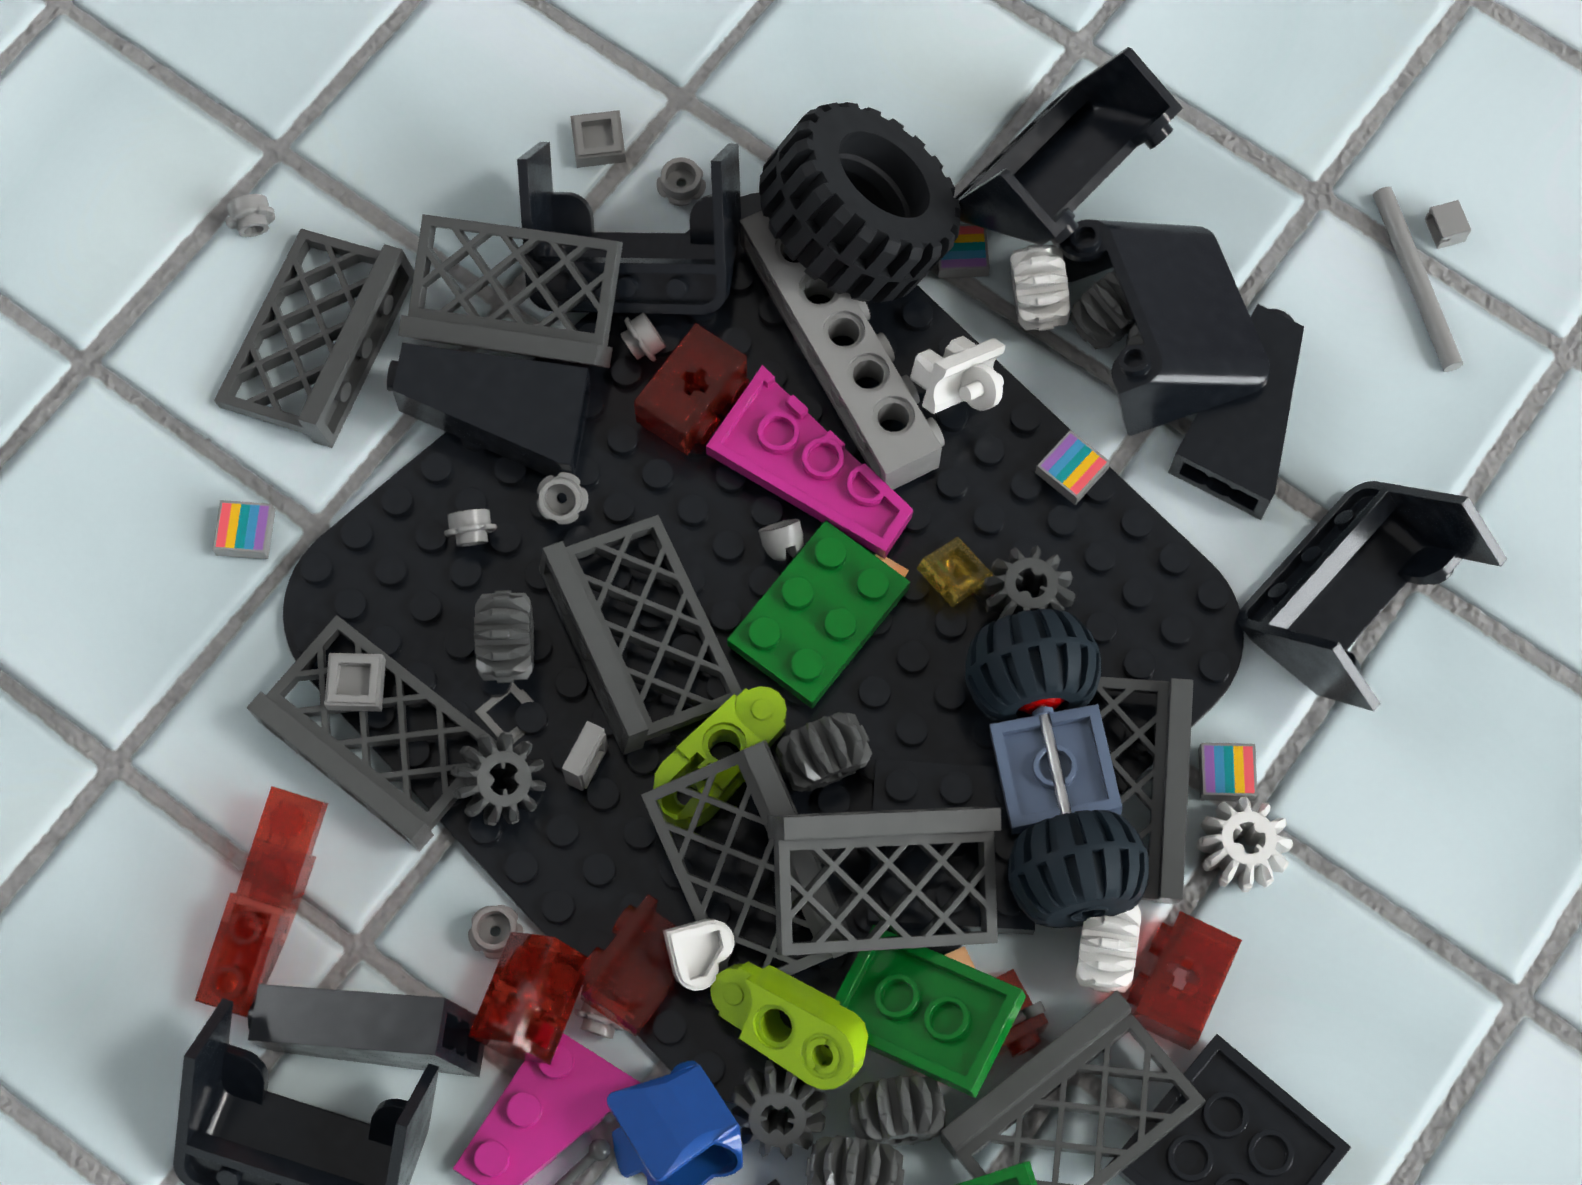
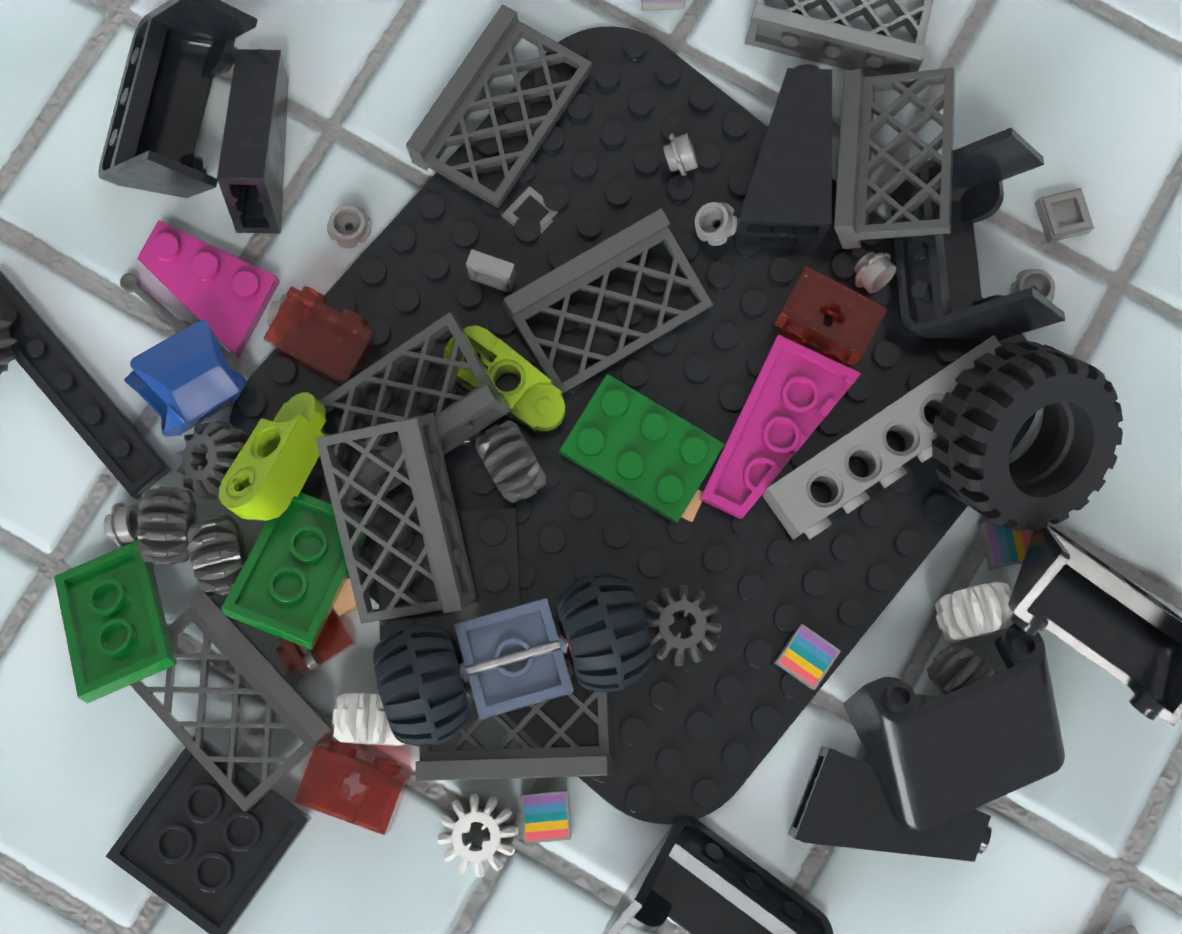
camera: 80 degrees right, 10 degrees up
(265, 901) = (350, 50): clear red slope -> none
(355, 682) = (534, 83): light grey tile -> none
(504, 636) = (582, 189): dark grey gear -> none
(516, 777) = (444, 203): dark grey gear -> none
(529, 998) = (287, 254): clear red brick -> none
(697, 950) = (330, 377): white tile -> none
(782, 535) = (706, 409): light grey hinge -> none
(954, 571) = (693, 560): clear yellow tile -> none
(960, 375) = (870, 549): white hips -> none

